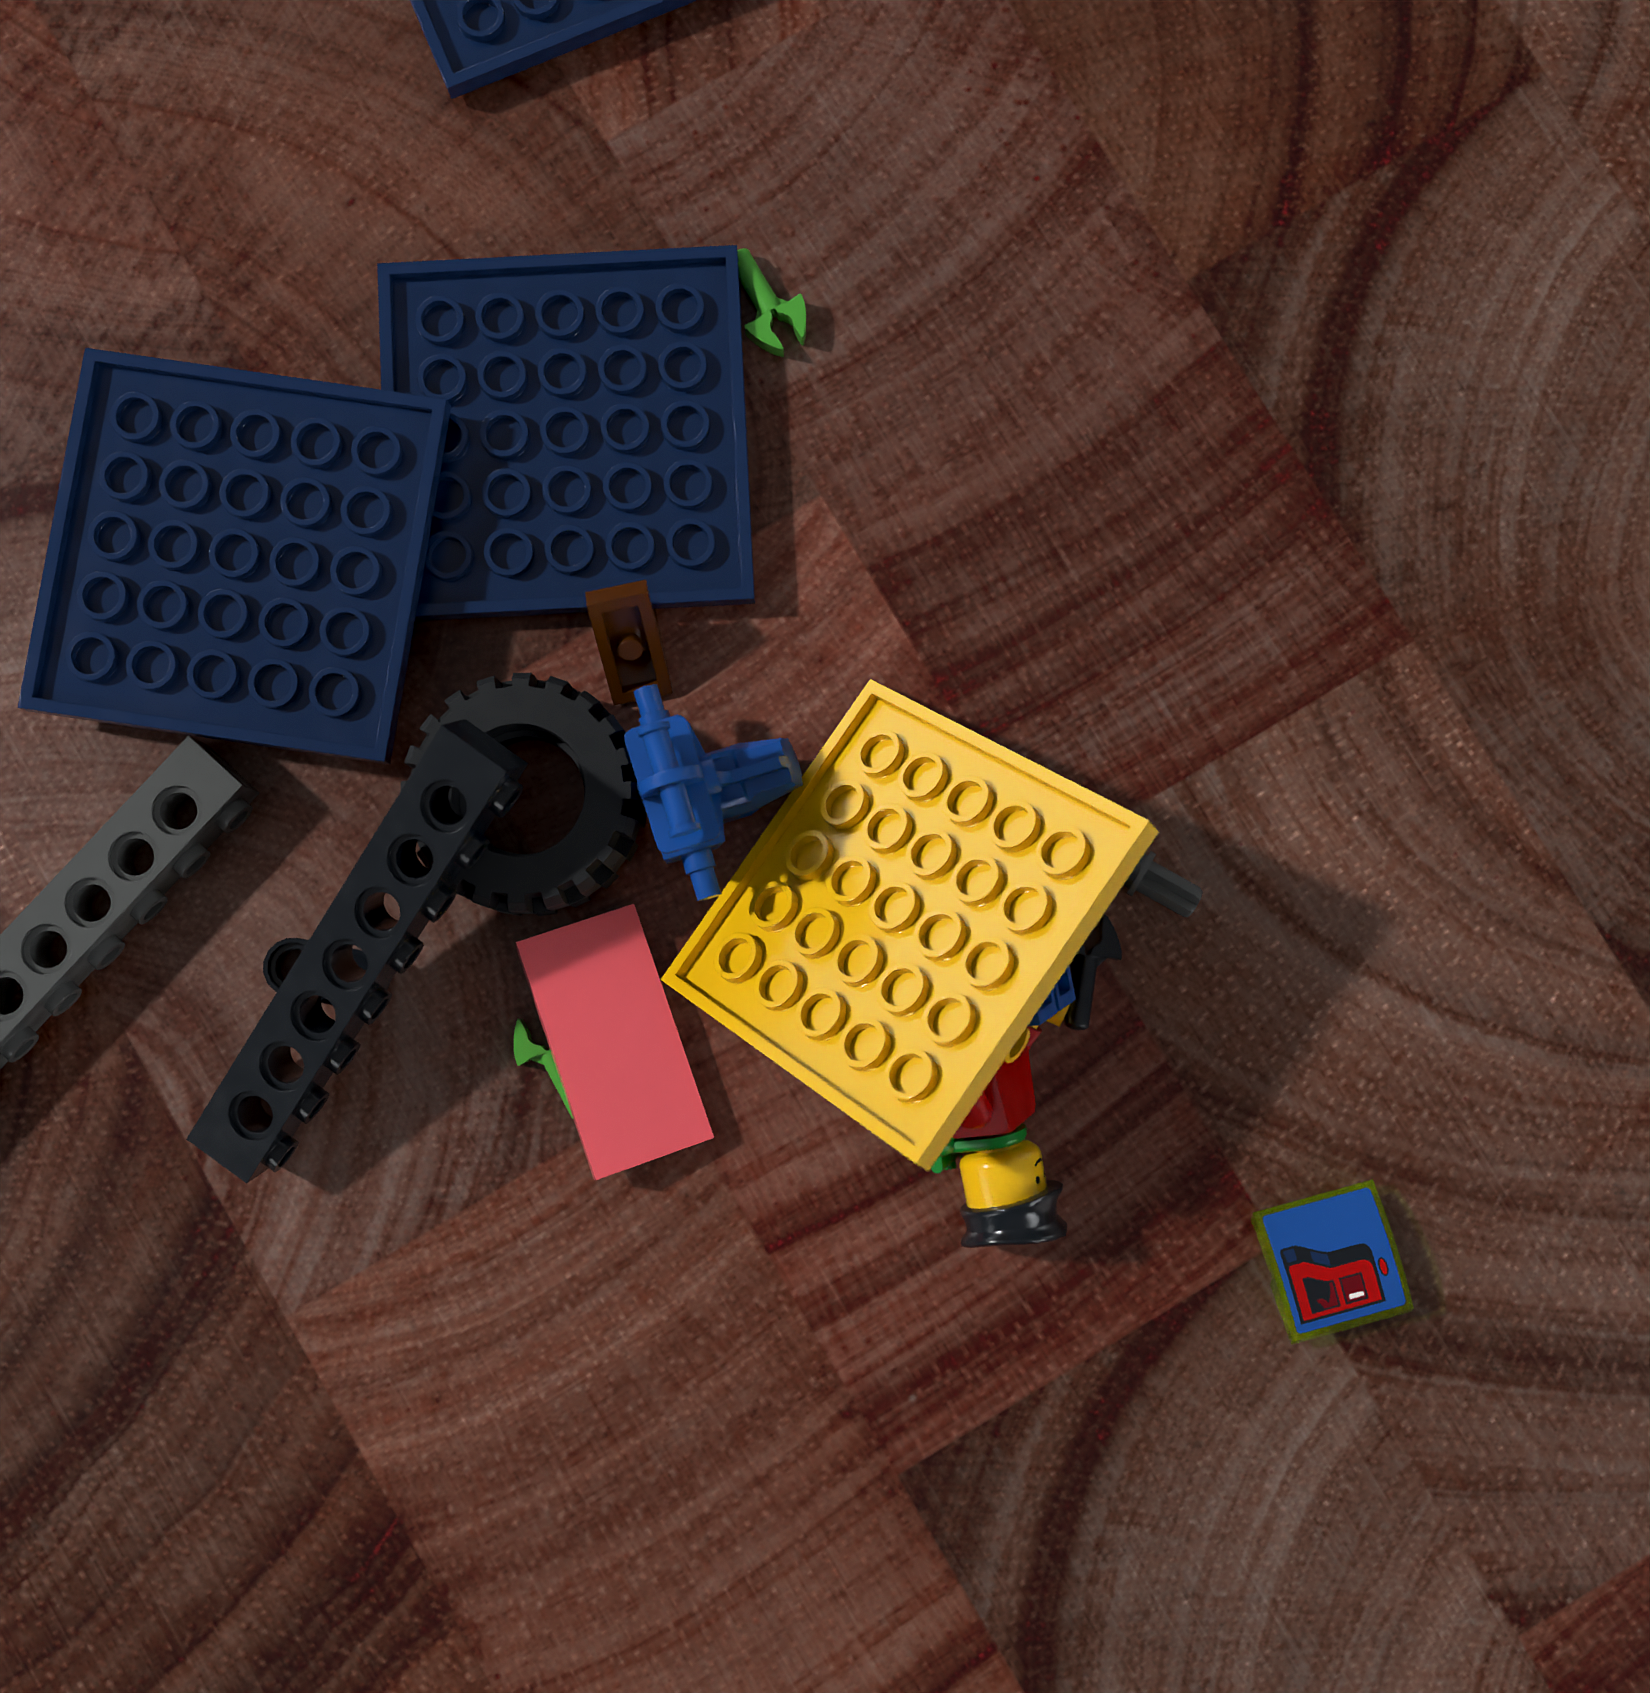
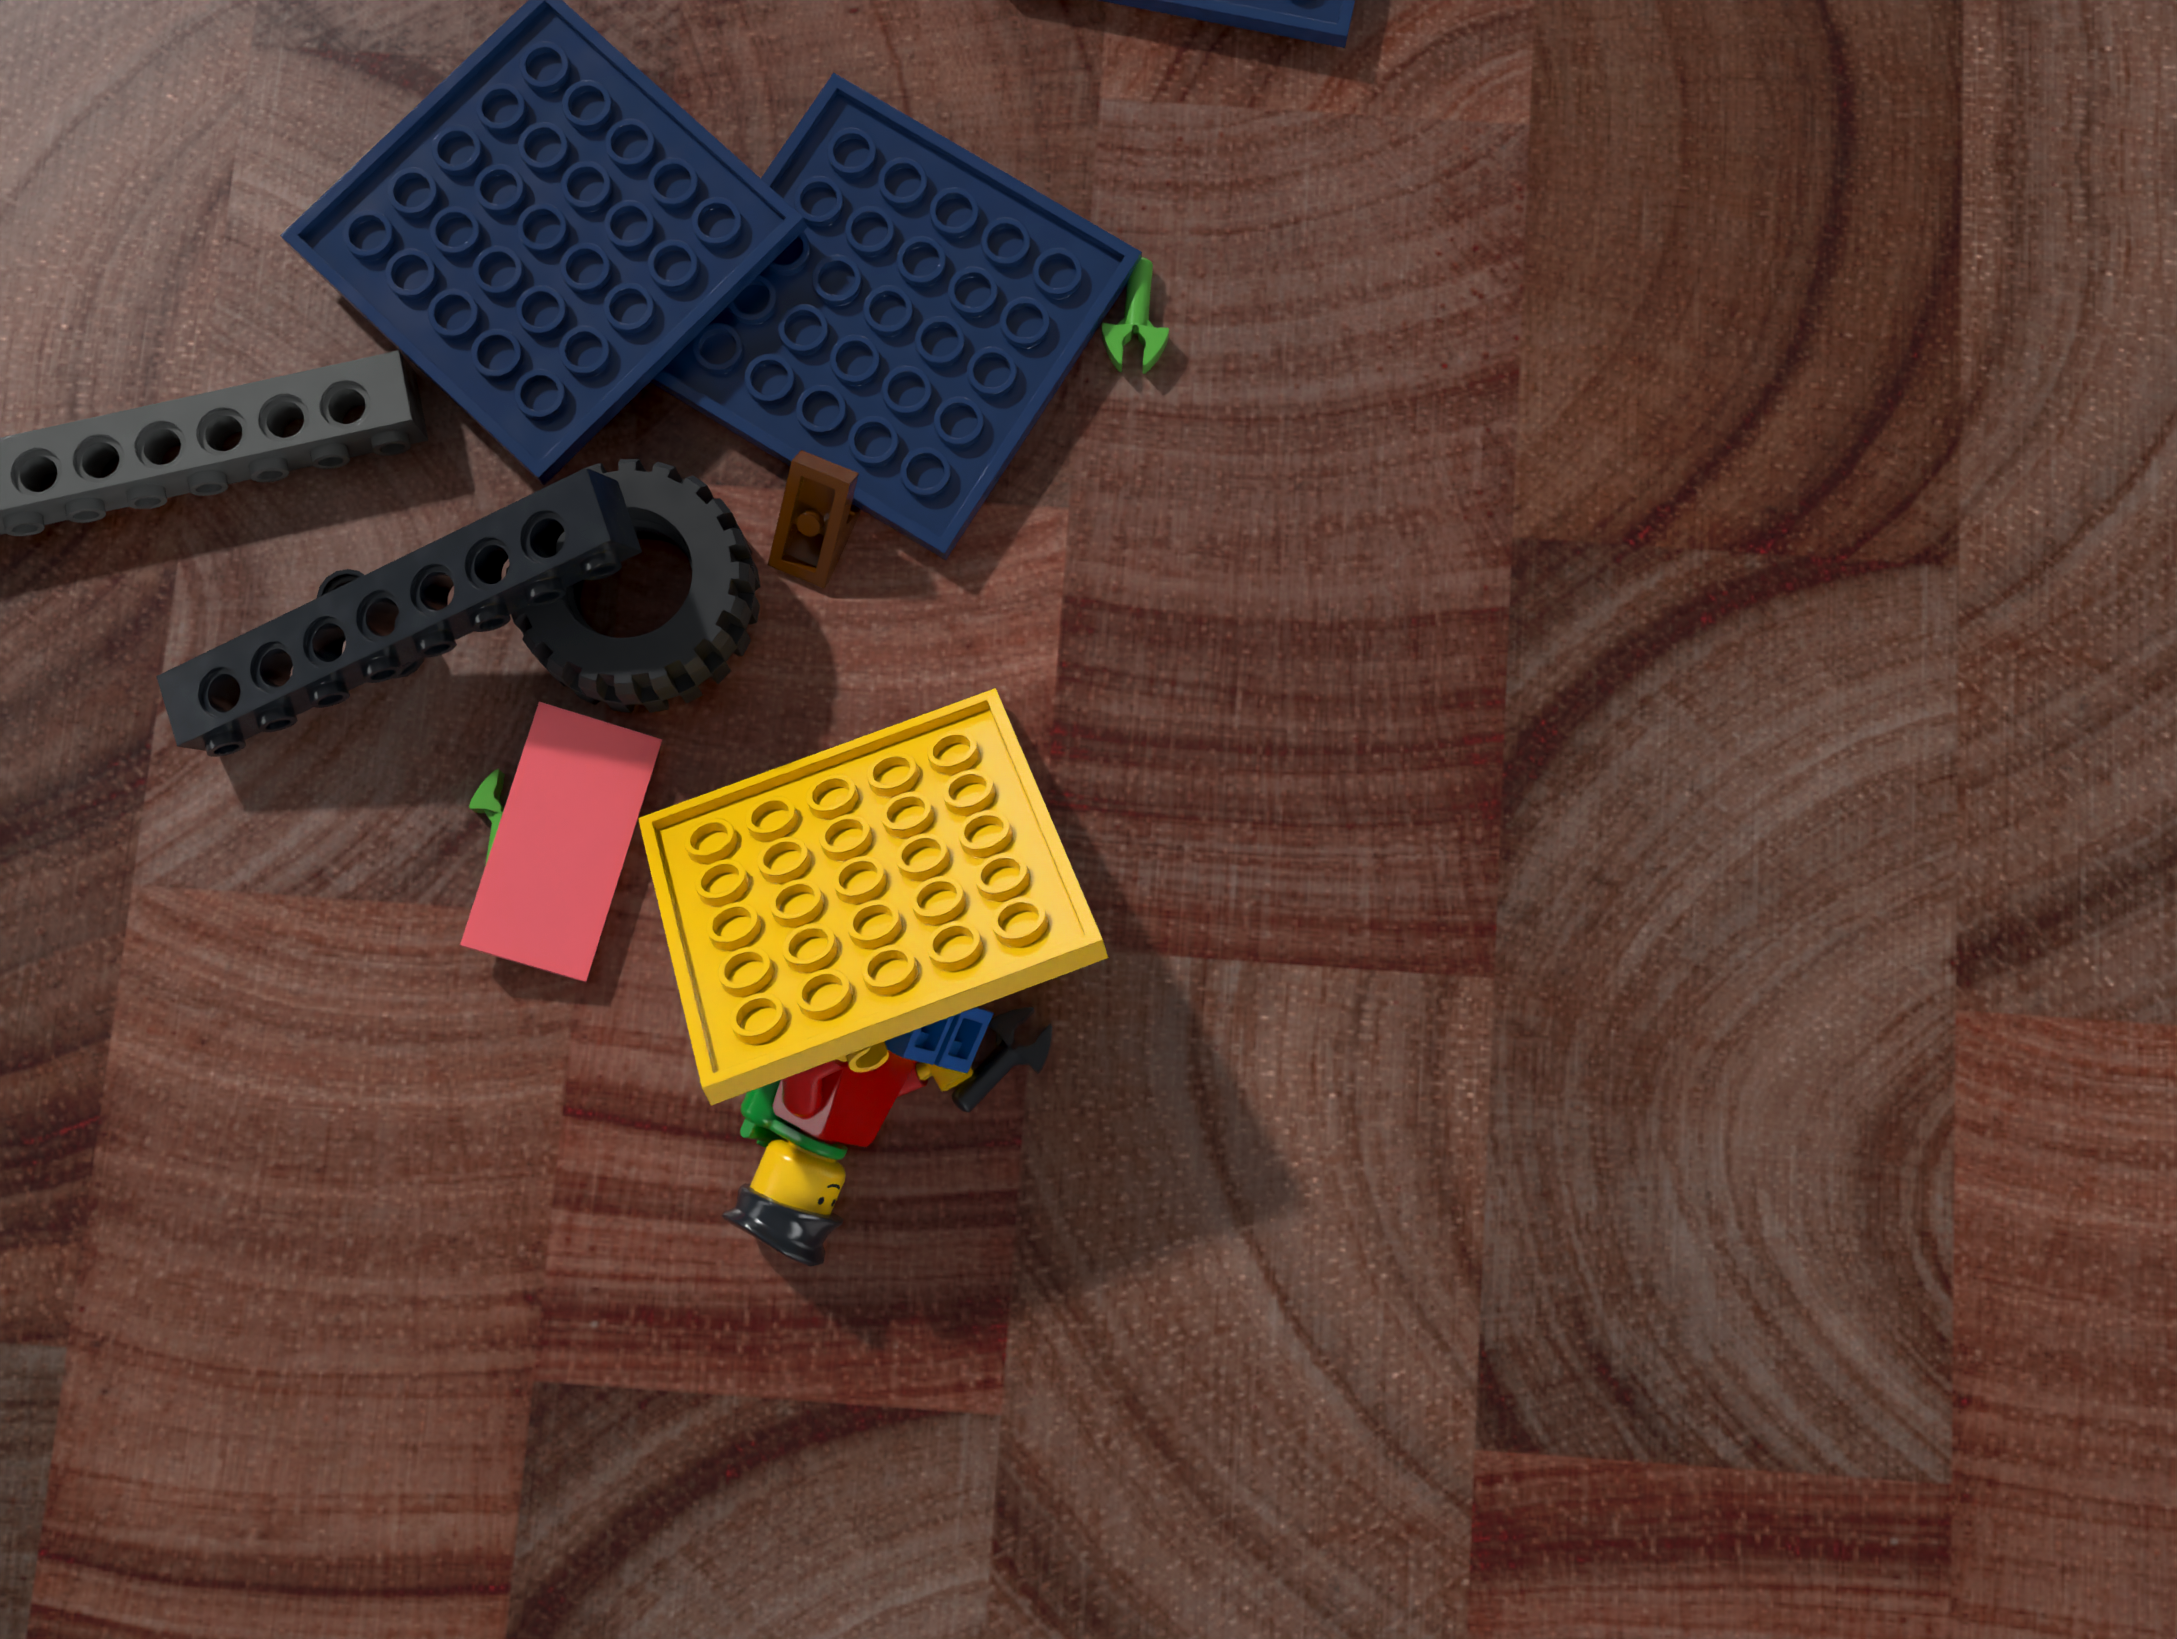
camera: 35 degrees right, 5 degrees down
(697, 792) = (764, 677): blue piece -> none
(1163, 886) = (1109, 1015): dark grey axle -> none
(1332, 1262) = (1032, 1462): slope -> none

